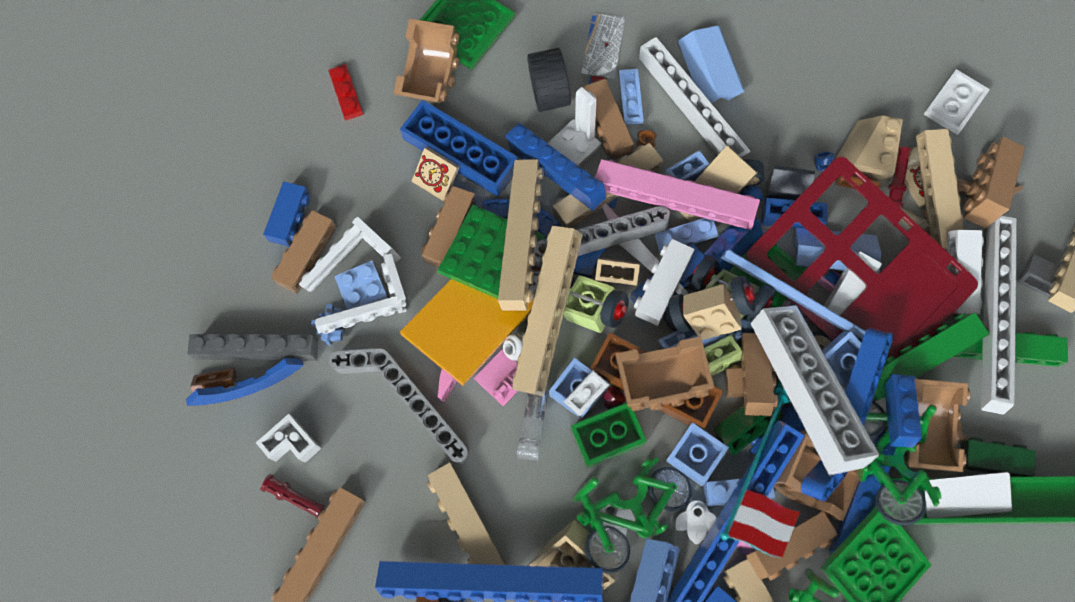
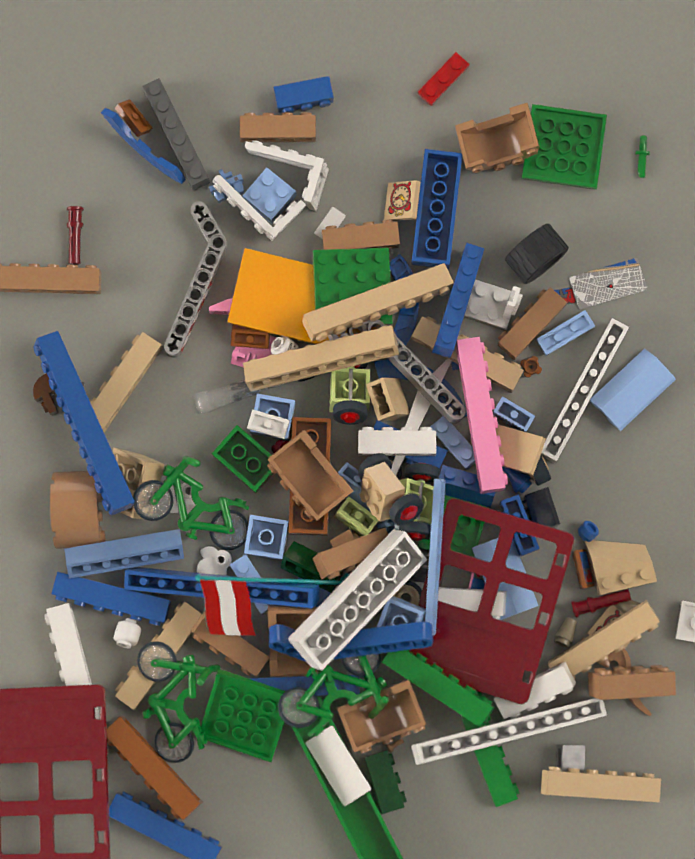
camera: 60 degrees right, 10 degrees up
(288, 436) = (119, 206): white brick -> none
(415, 246) = (333, 217): none -> white sticker
(487, 374) = (249, 337): none -> dark orange slope
(902, 411) = (375, 680): blue brick -> none

